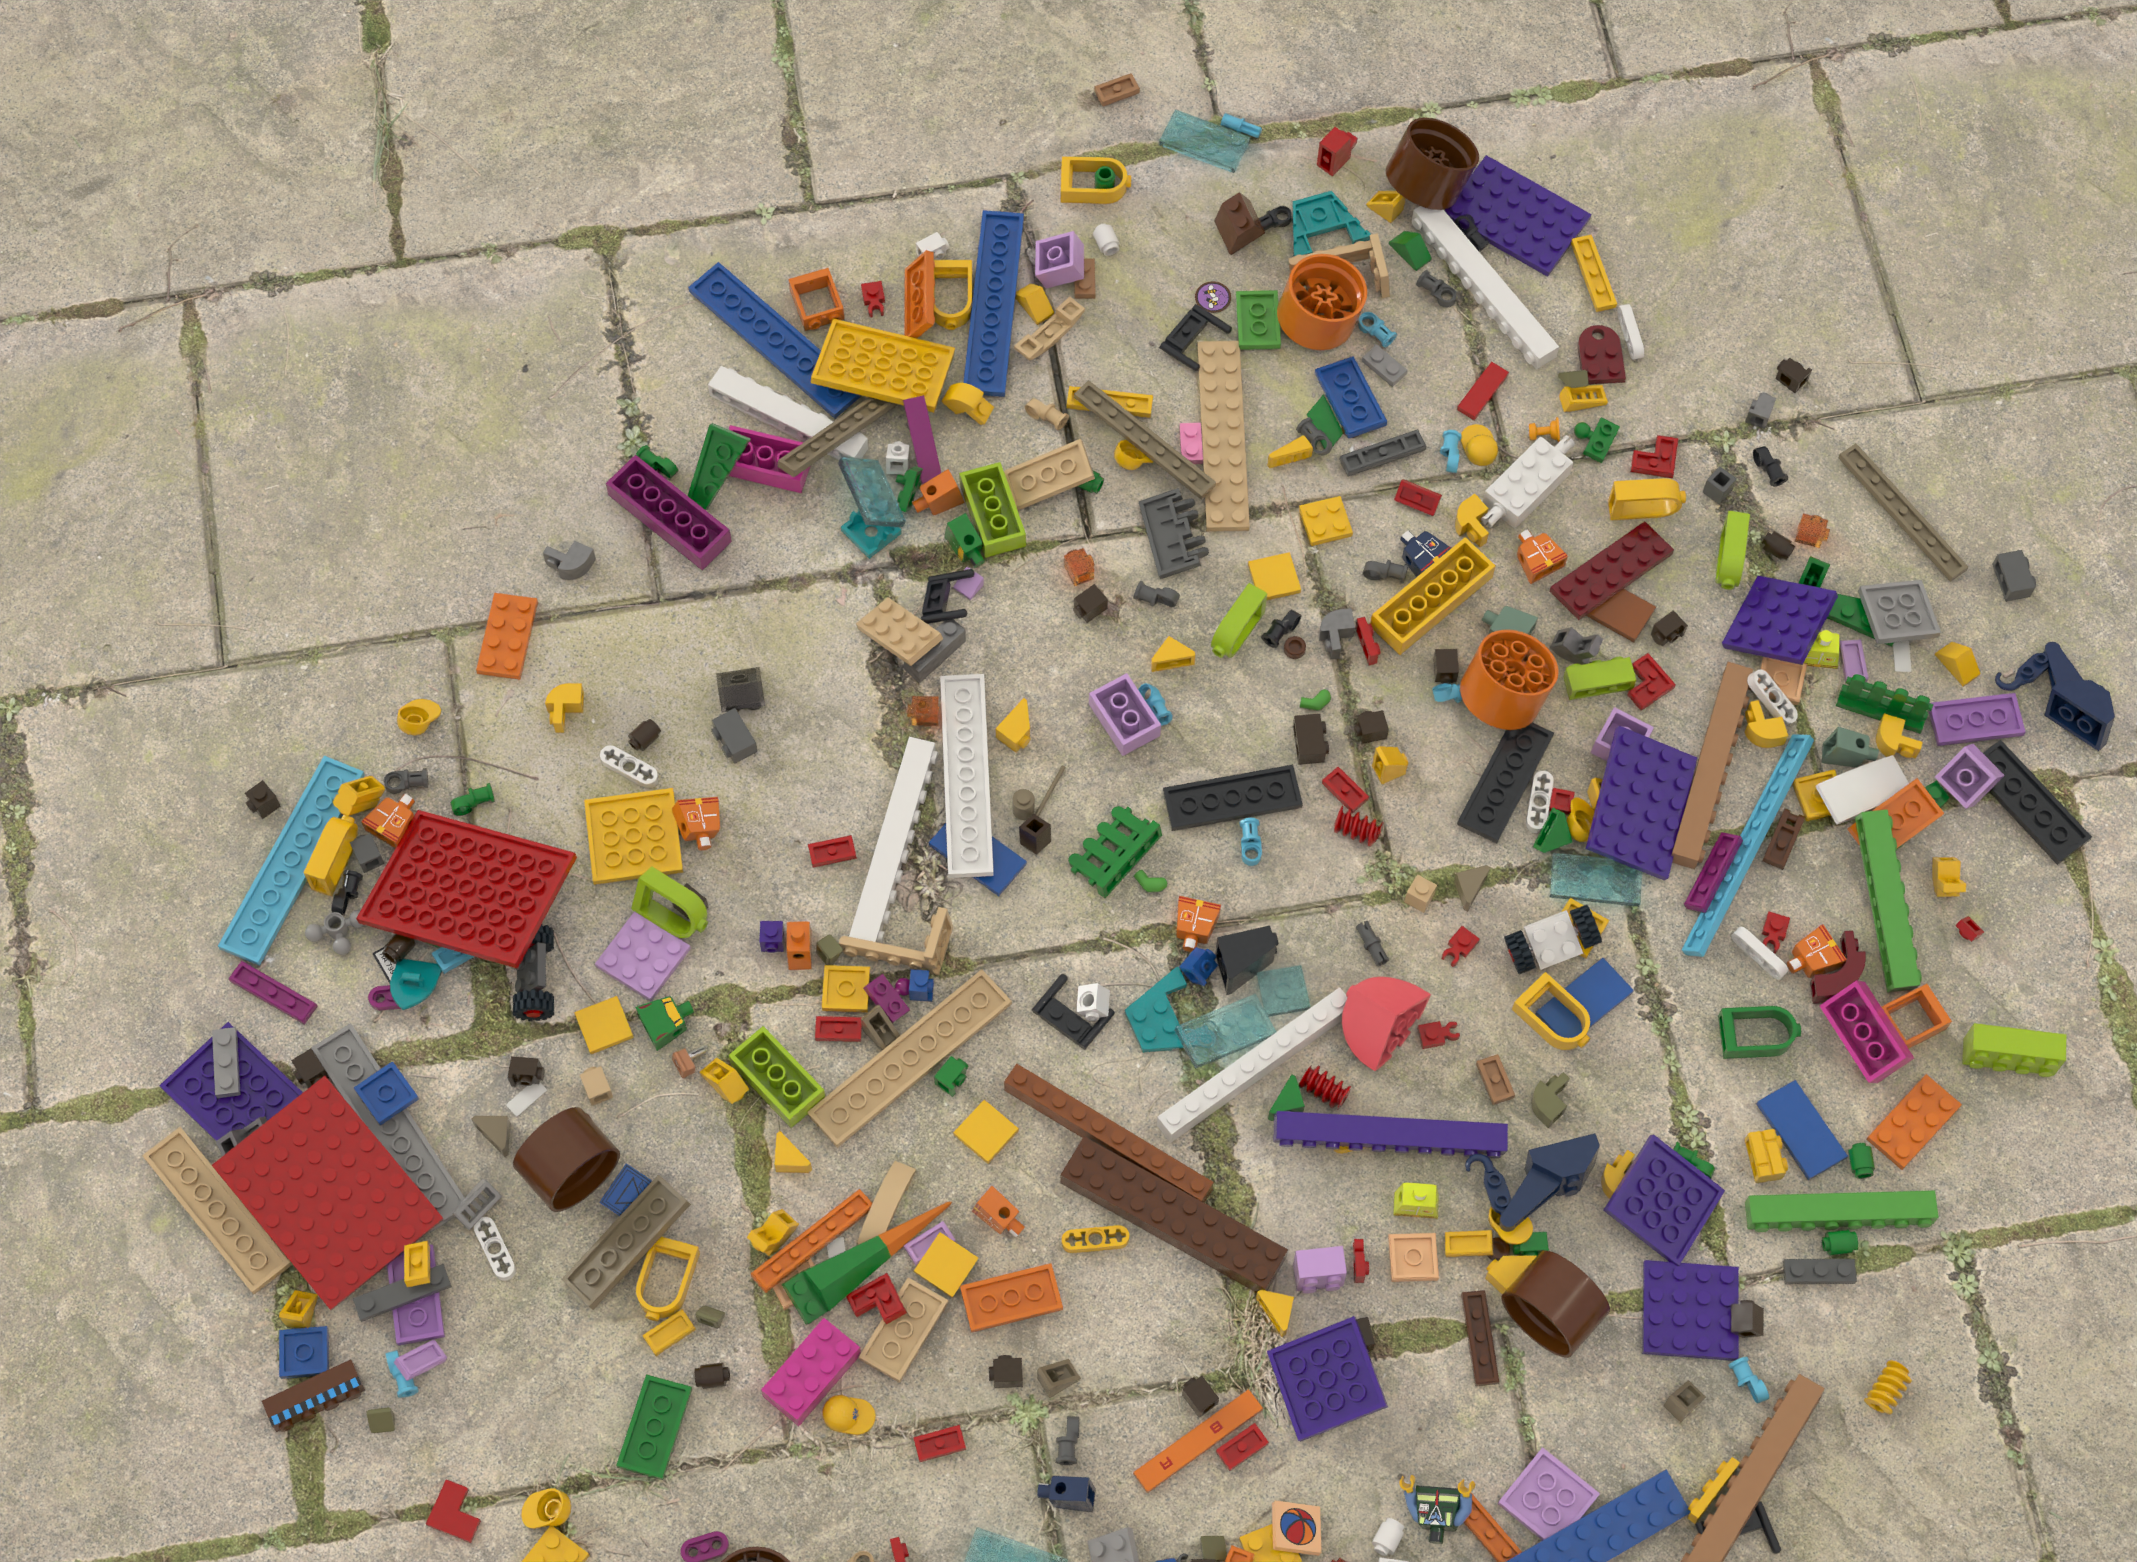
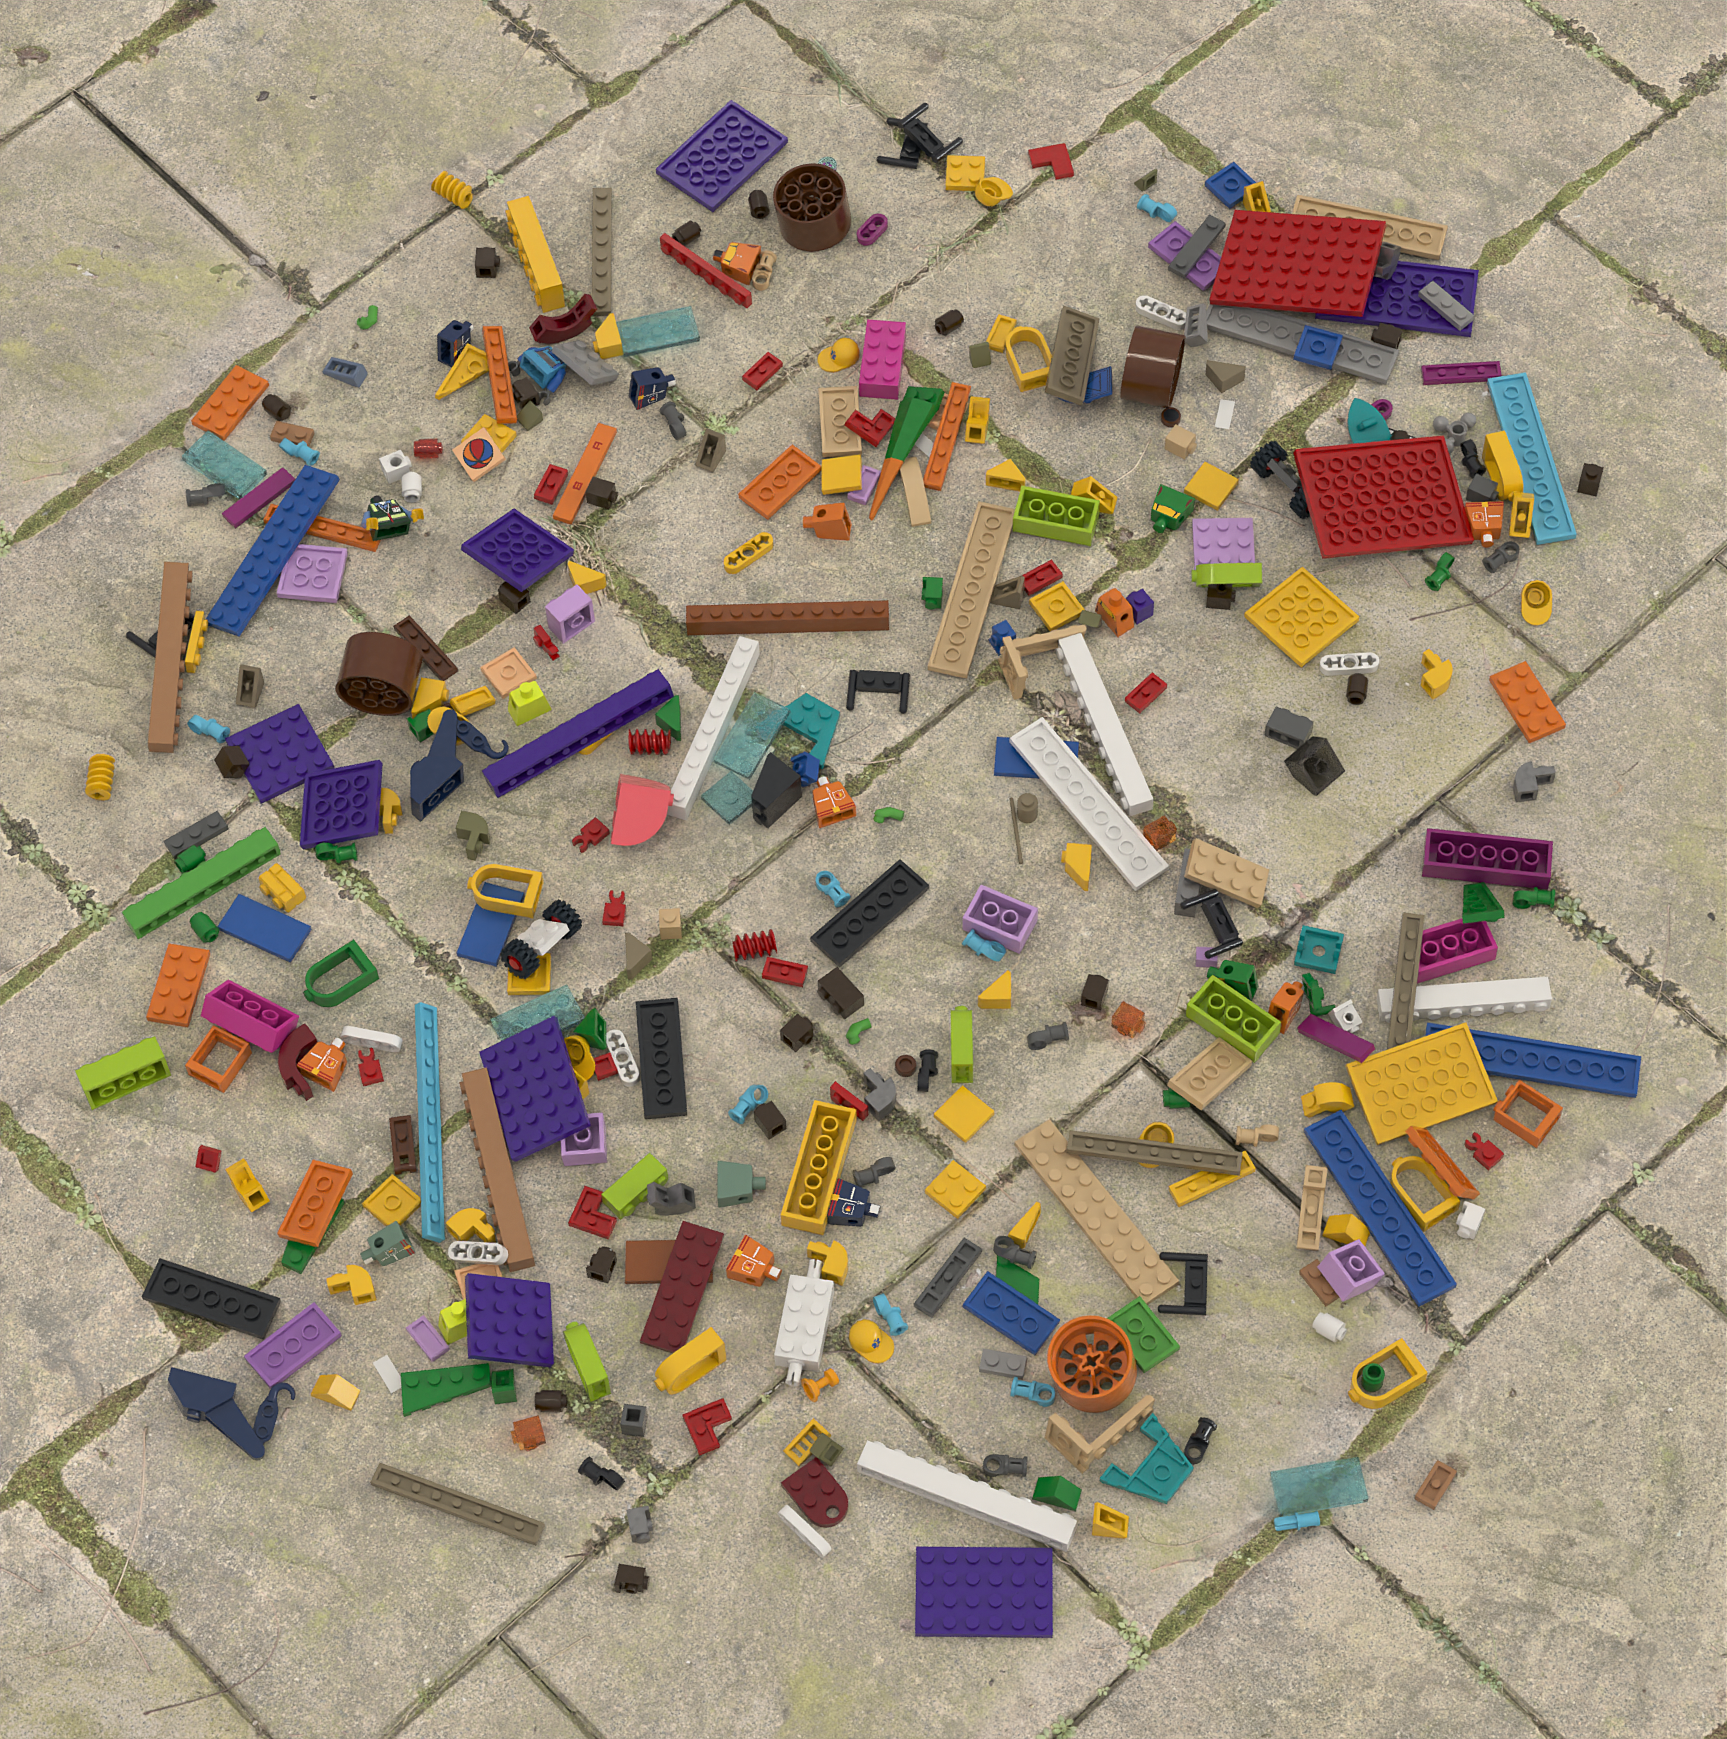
camera: 150 degrees right, 5 degrees down
(313, 1396) = (1201, 165): reddish brown brick -> none
(417, 1264) = (1200, 260): yellow plate -> none
(420, 1360) = (1150, 219): lavender tile -> none
(525, 1071) = (1237, 421): dark brown brick -> none
(654, 1427) = (962, 274): green plate -> none
(683, 1060) = (1133, 494): nougat piece -> none
(698, 820) = (1262, 649): orange torso -> none
(871, 492) = (1340, 968): clear light blue plate -> none
(889, 998) = (1020, 615): magenta plate -> none
(986, 1131) = (880, 576): yellow tile -> none
(1006, 1372) = (747, 435): dark brown brick -> none
(1035, 834) = (1001, 788): dark brown brick -> none
(1093, 1001) = (866, 699): white brick -> none
(1128, 853) = (931, 829): green fence -> none
(1168, 530) = (1074, 1091): dark grey hinge -> none
(1173, 1216) = (667, 593): reddish brown brick -> none
(1191, 442) = (1118, 1187): bright pink plate -> none
(1213, 296) = (1198, 1338): sticker -> none
(1238, 223) = (1221, 1408): reddish brown slope -> none
(1335, 150) = (1190, 1541): red hinge -> none
(1372, 943) = (684, 869): dark grey pin -> none
(1389, 763) = (761, 1006): yellow slope -> none
(1418, 497) = (895, 1252): red plate -> none
(1432, 163) = (1062, 1584): reddish brown wheel -> none
(1472, 232) = (1018, 1541): black connector -> none
(1482, 390) = (900, 1393): red tile -> none
(1495, 1079) = (524, 825): medium nougat plate -> none
(1509, 679) = (720, 1143): orange wheel -> none
(1593, 273) = (874, 1572): yellow plate -> none
(1599, 440) = (768, 1410): green plate -> none
(1713, 872) = (445, 1082): magenta tile -> none
(1861, 788) = (356, 1219): white slope -> none
(1875, 705) = (379, 1306): green fence -> none
(1888, 901) = (289, 1131): bright green brick -> none
(1899, 611) = (409, 1394): light grey plate -> none
(1969, 776) = (271, 1277): lavender brick -> none
(2014, 575) = (325, 1501): dark grey brick -> none

